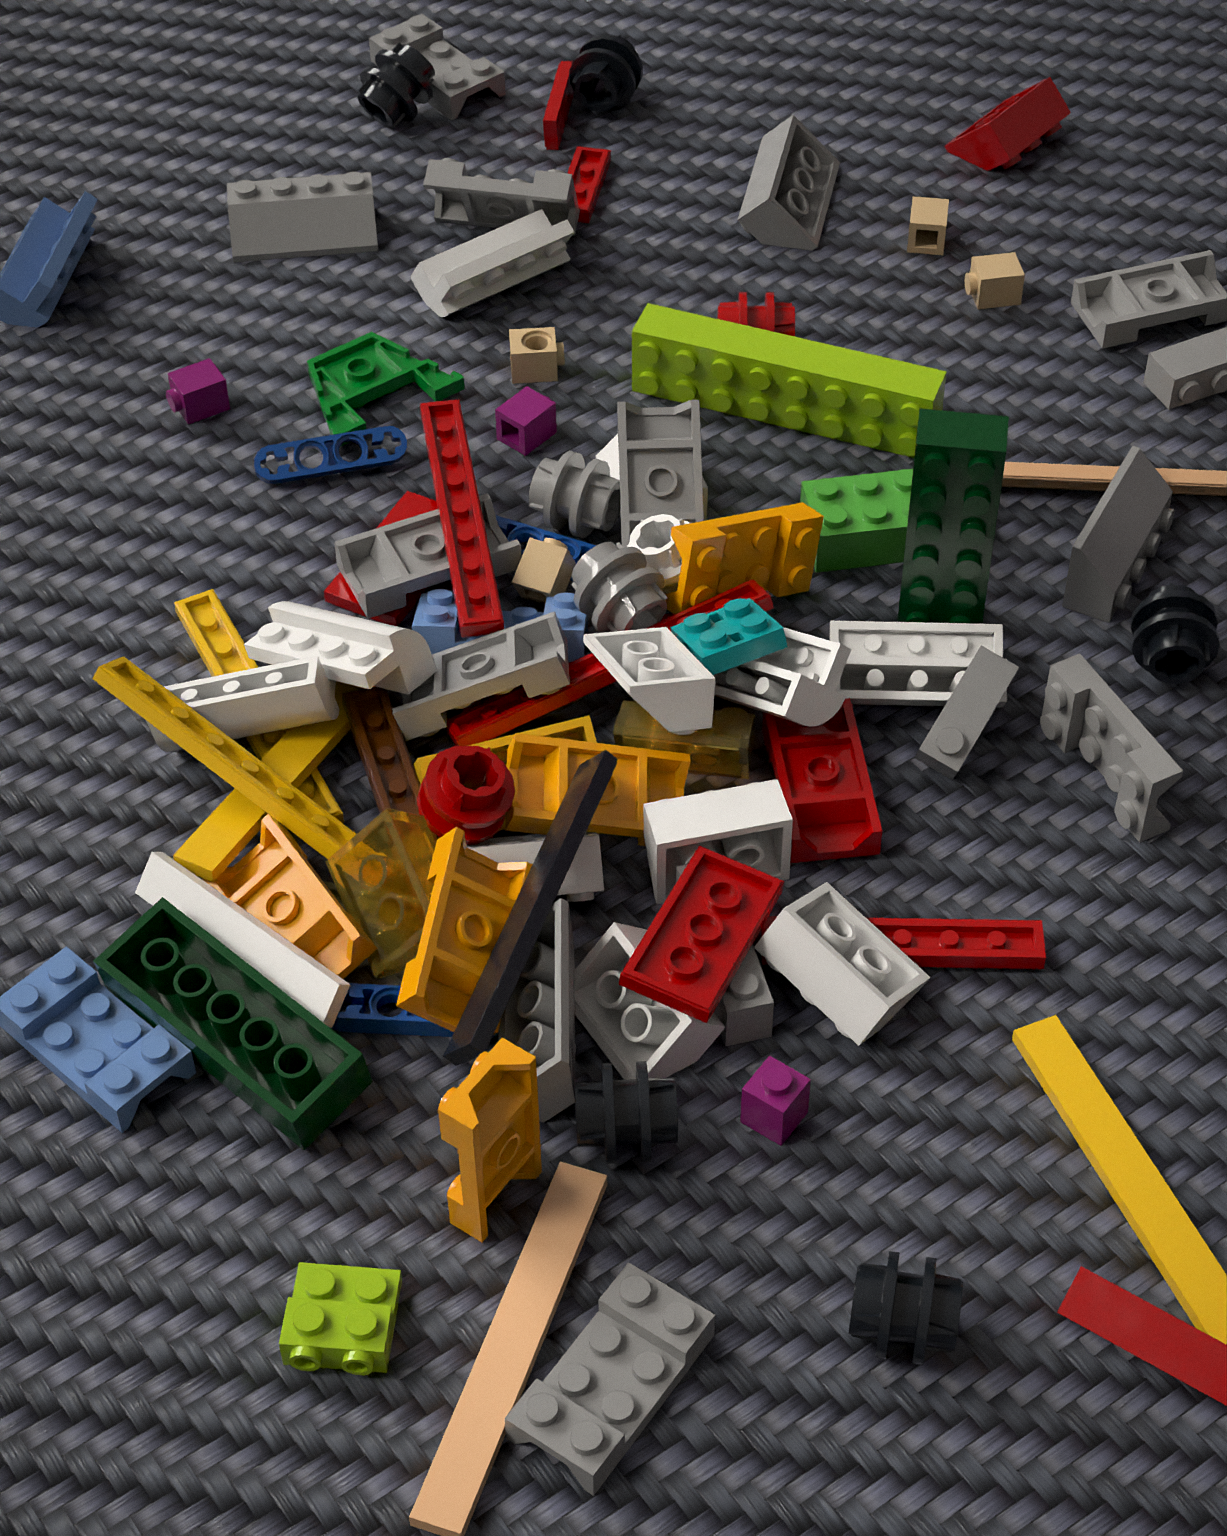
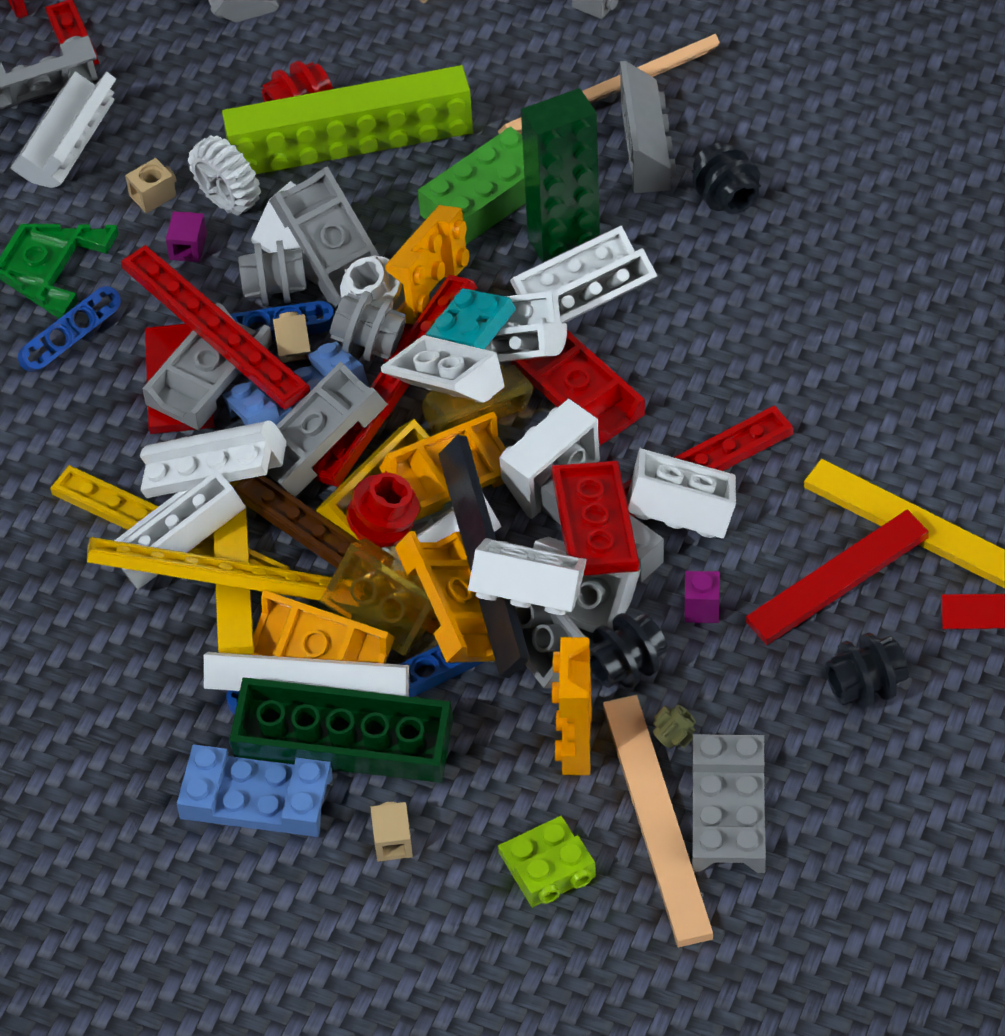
camera: 30 degrees left, 5 degrees up
(193, 1172) = (391, 831): none -> tan brick
(545, 948) = (526, 576): none -> white slope
(608, 371) = (224, 175): none -> white gear
(617, 1239) = (674, 726): none -> olive gear
(966, 712) = (640, 297): light grey slope -> none
(967, 1169) = (837, 577): none -> red tile
(1090, 716) = (740, 268): light grey piece -> none

